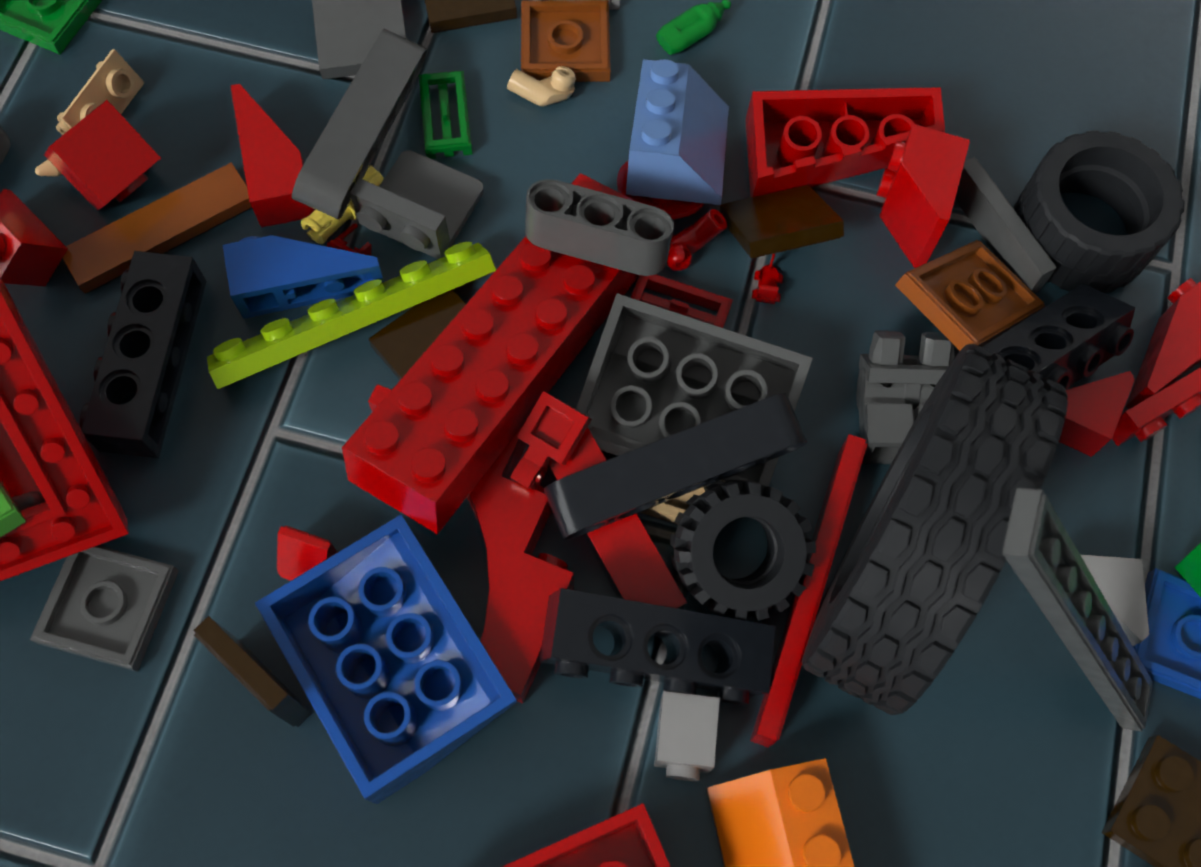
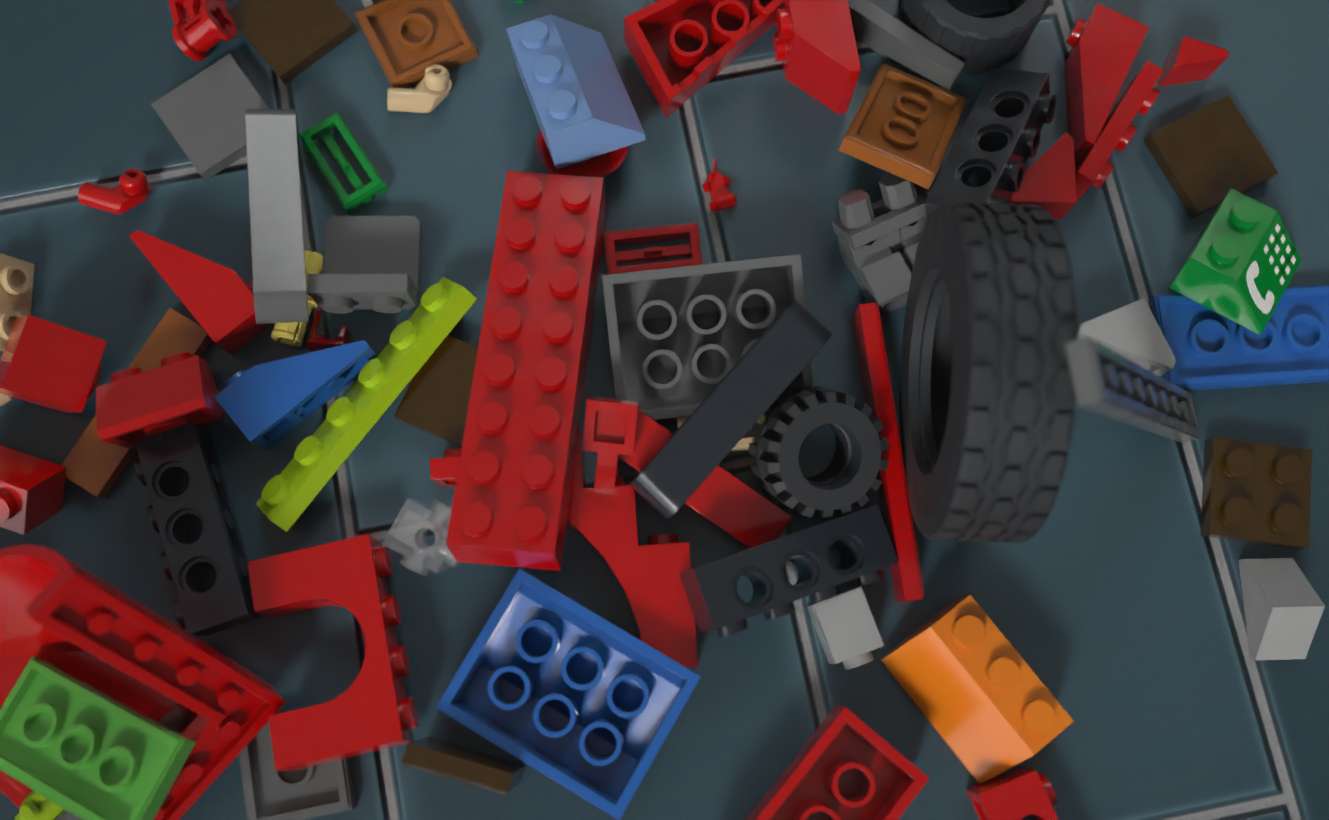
camera: 25 degrees left, 10 degrees up
(172, 224) = (156, 400): none -> red slope
(208, 576) = (375, 707): none -> red arch
(255, 60) = (128, 194): none -> red arm
(300, 552) = (447, 640): red slope -> none
(323, 445) = (409, 536): none -> clear brick
(598, 227) = (535, 215): dark grey beam -> none
(694, 238) = (626, 194): red arm -> none
(782, 221) = (706, 129): dark brown tile -> none

